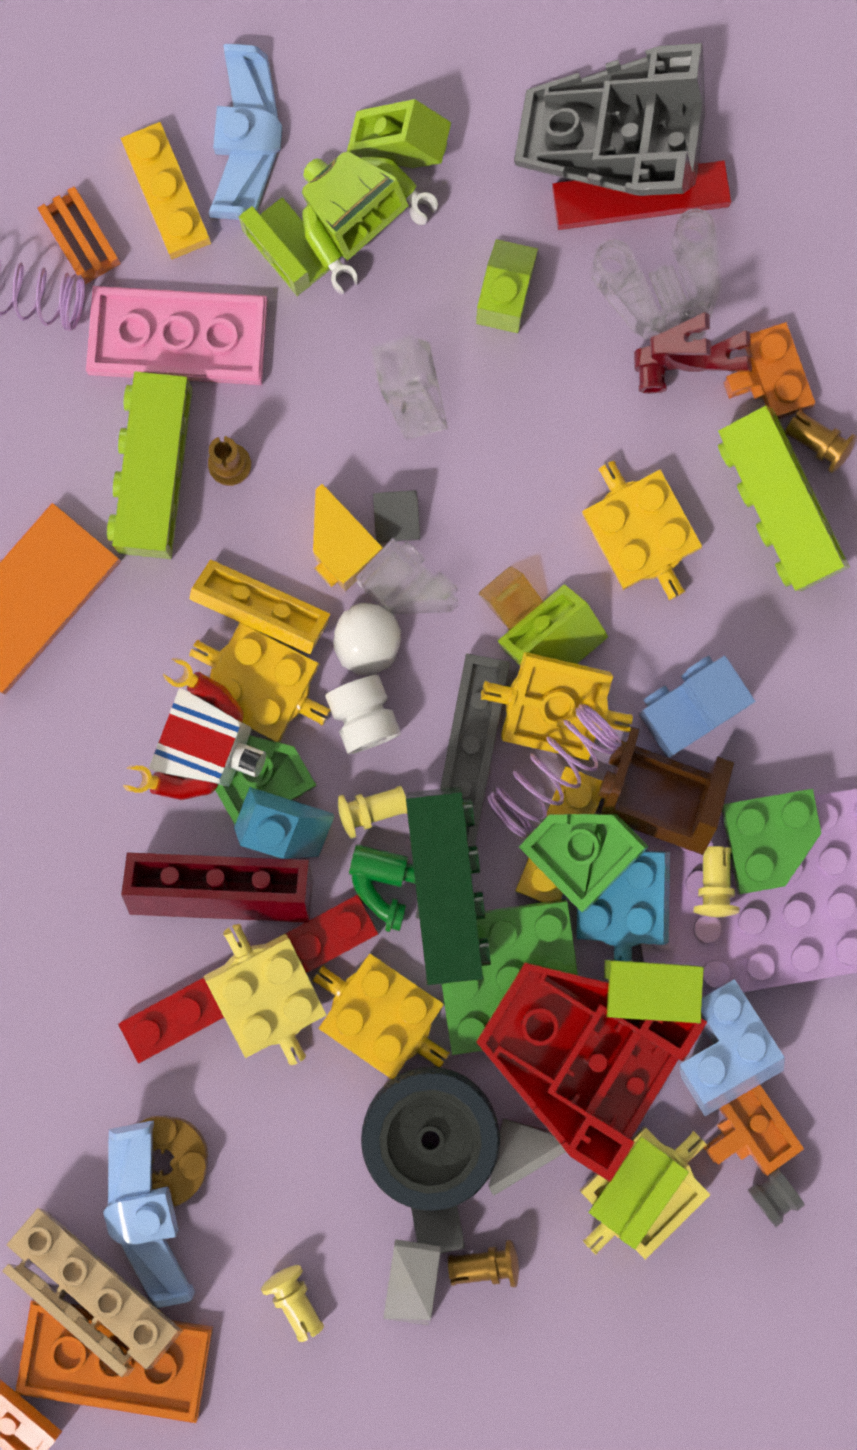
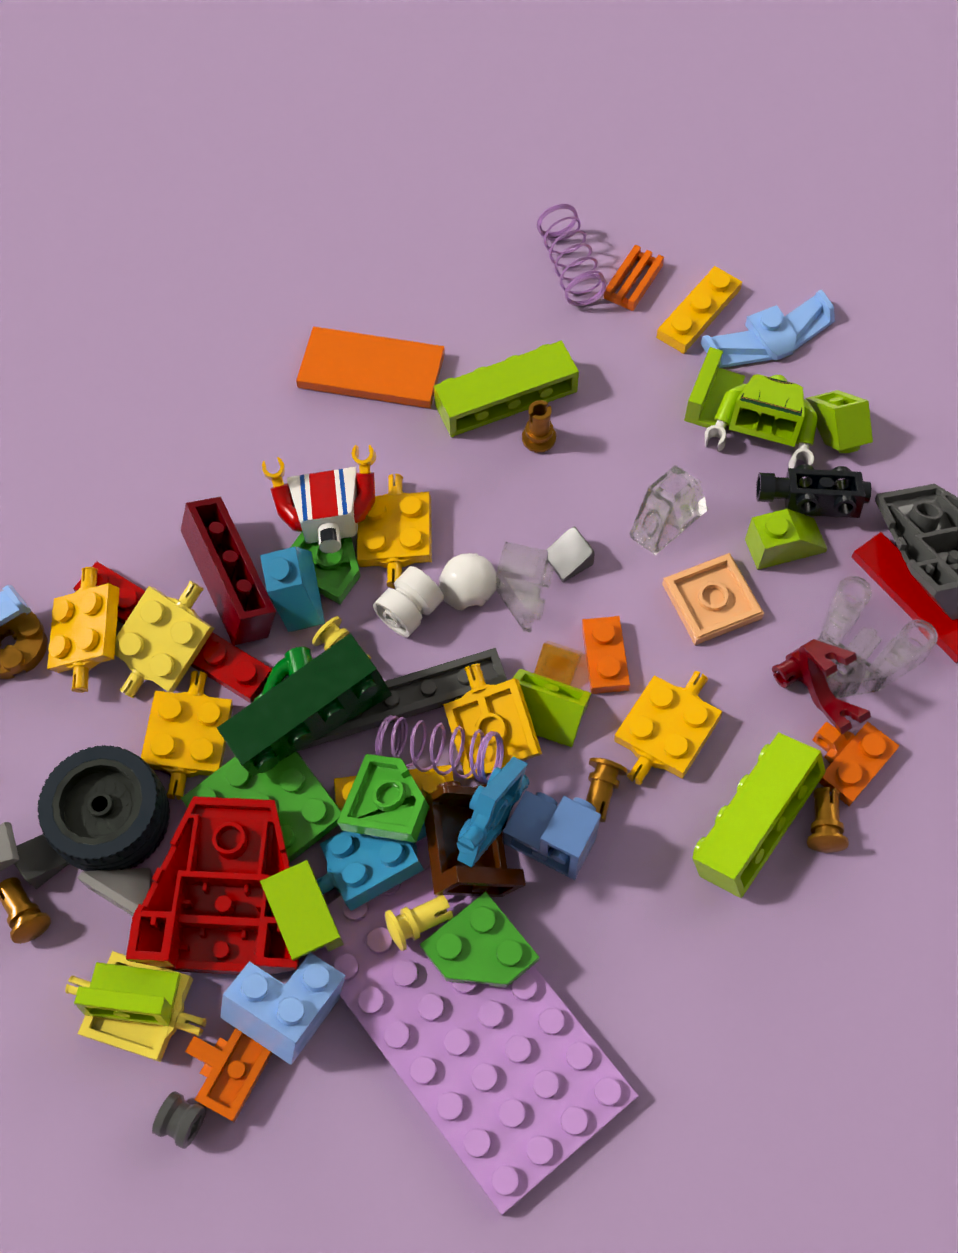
camera: 60 degrees right, 20 degrees down
(177, 334) = (608, 364): bright pink tile -> none
(203, 1072) = (83, 629): none -> yellow plate
(259, 606) = (448, 500): yellow plate -> none
(339, 541) = (526, 520): yellow slope -> none
(475, 219) = (817, 493): none -> black brick
(527, 400) = (712, 598): none -> light nougat tile
(528, 545) = (605, 655): none -> orange plate
(664, 759) = (491, 810): none -> dark azure plate
(671, 633) = (603, 783): none -> pearl gold pin

